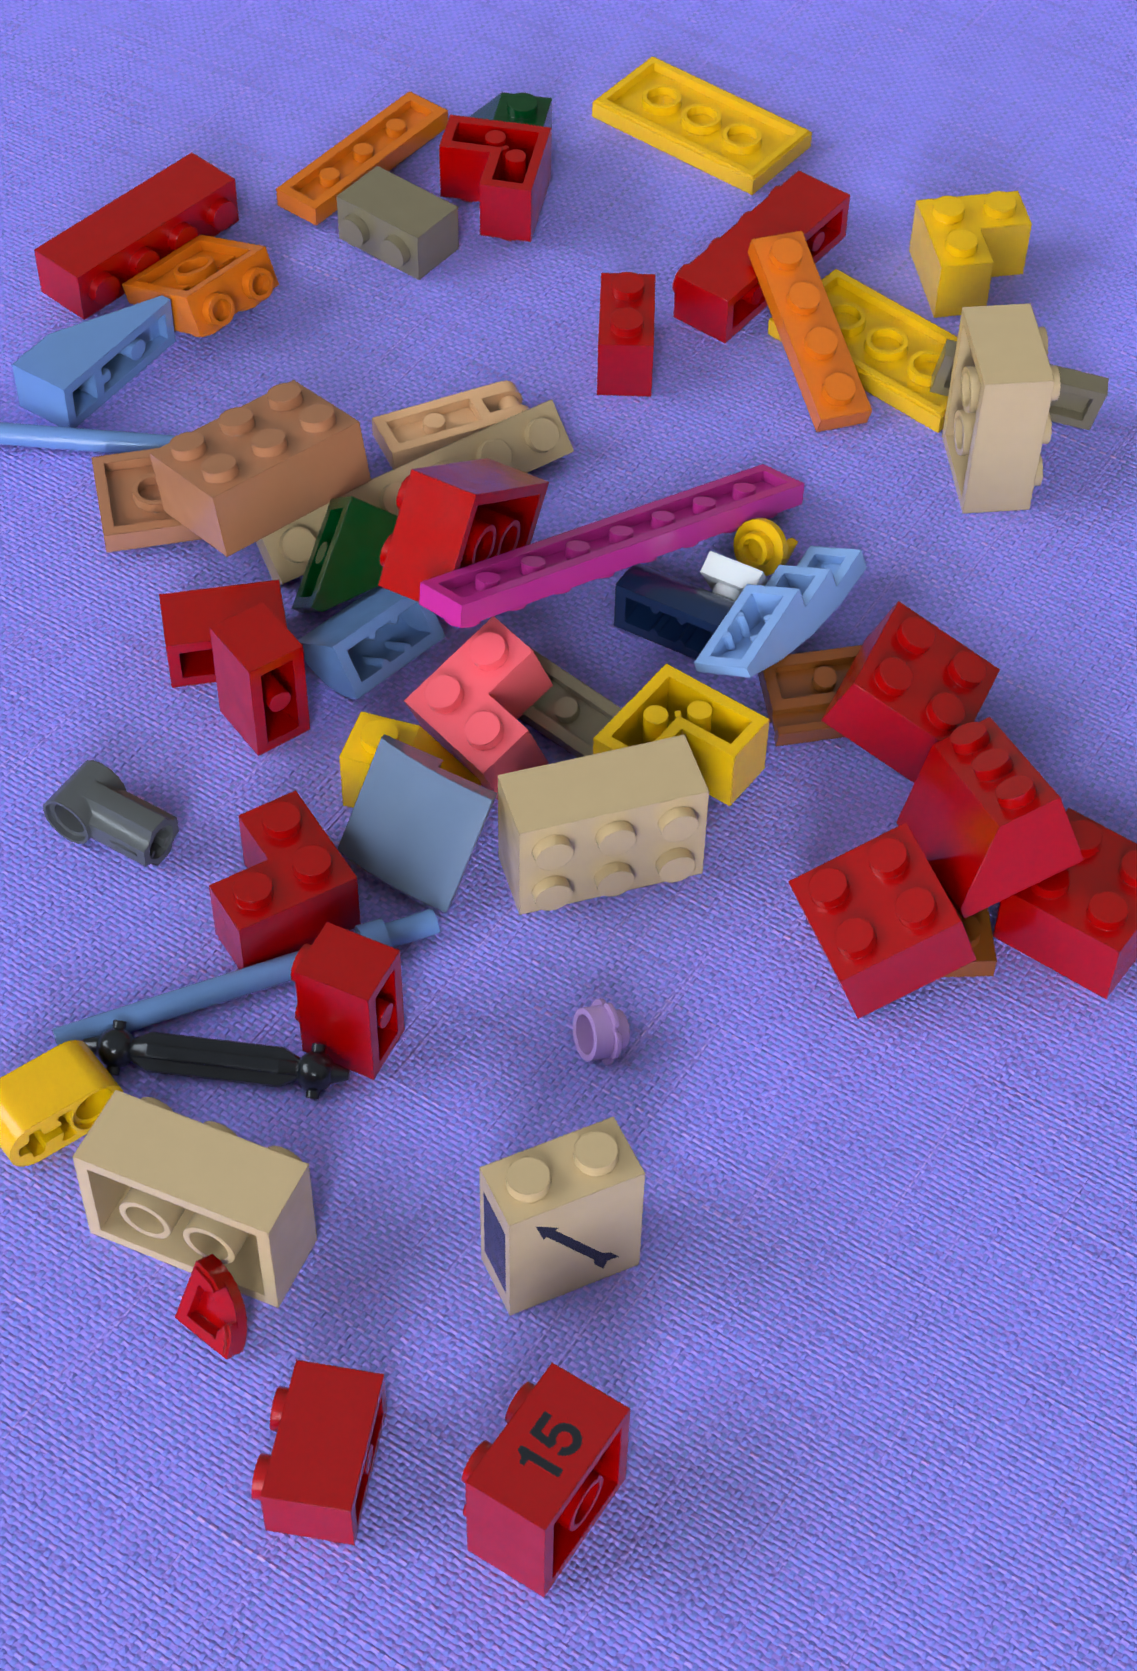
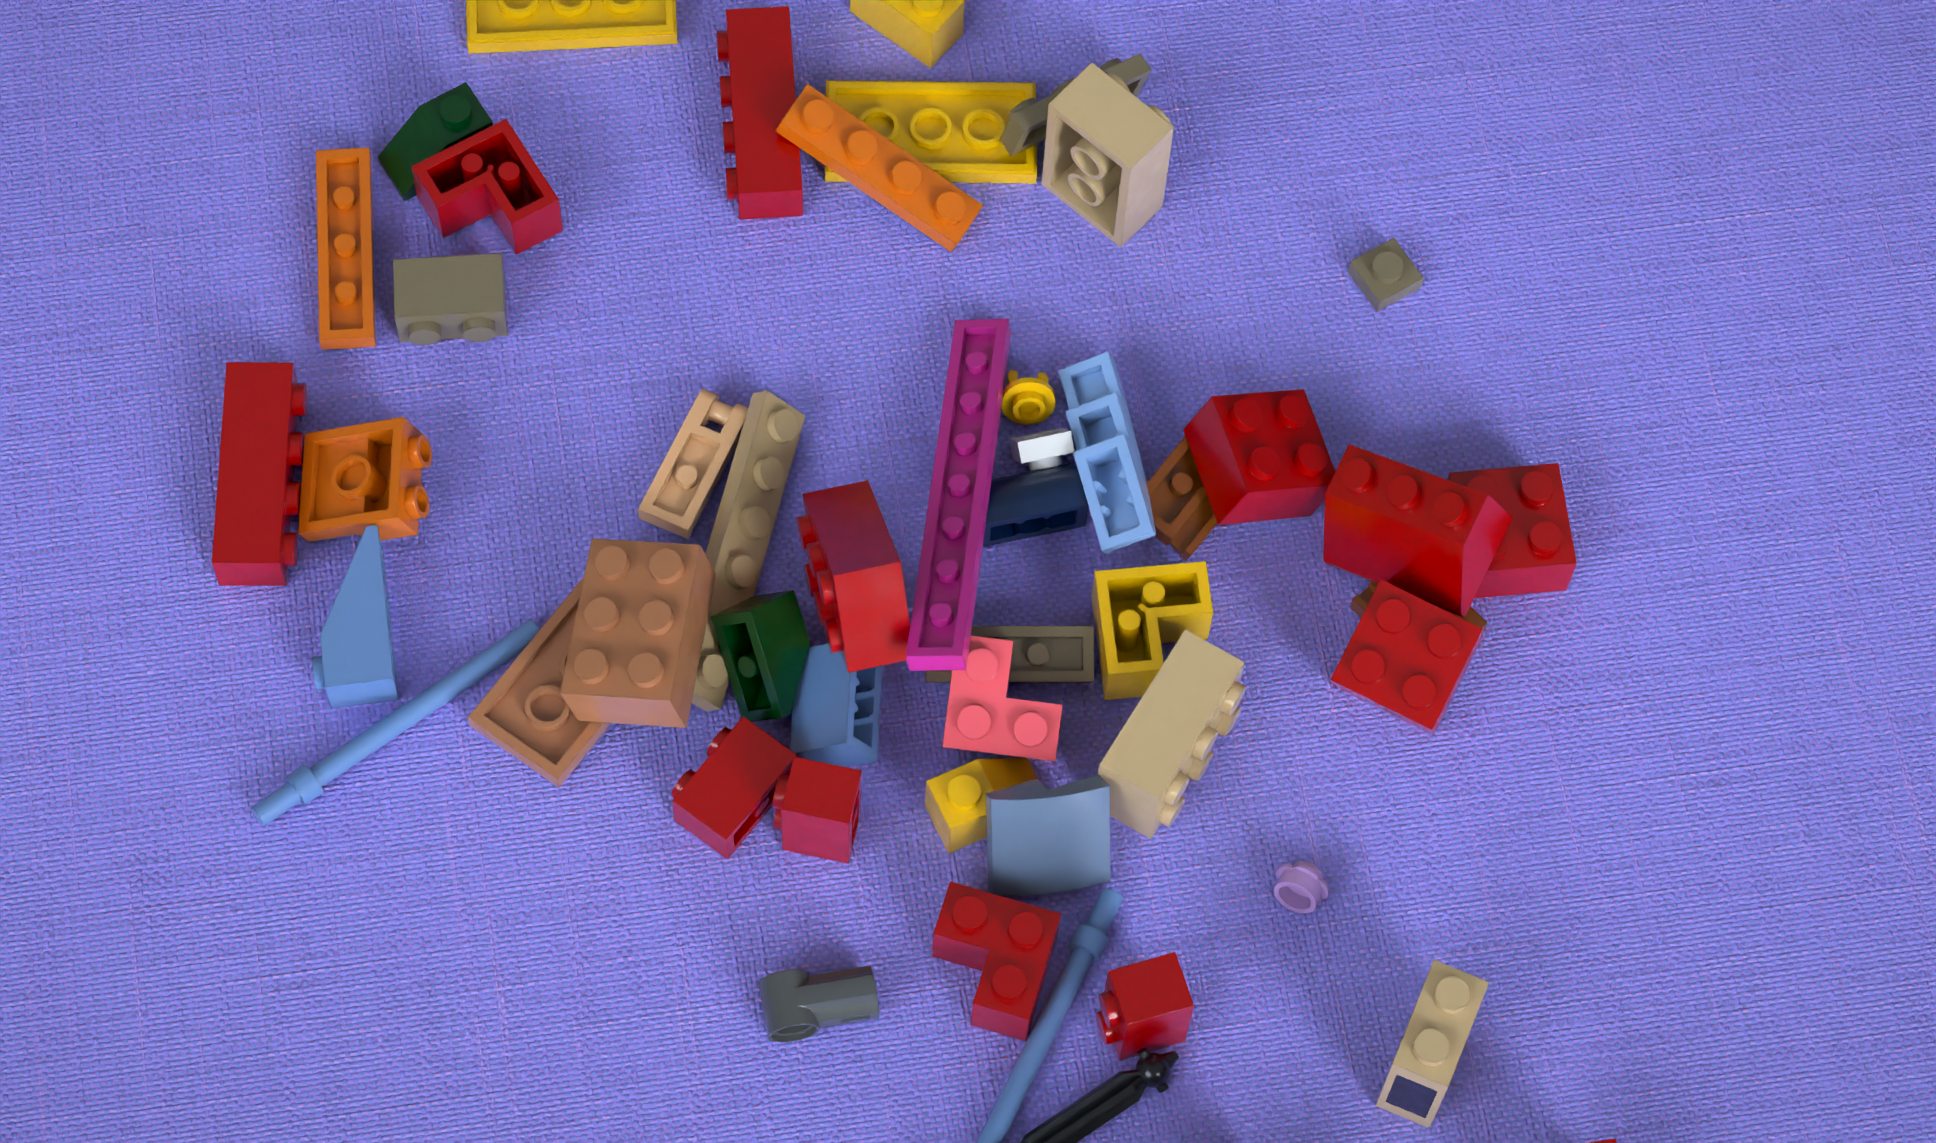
camera: 45 degrees left, 15 degrees up
(626, 334) = (743, 275): red brick -> none

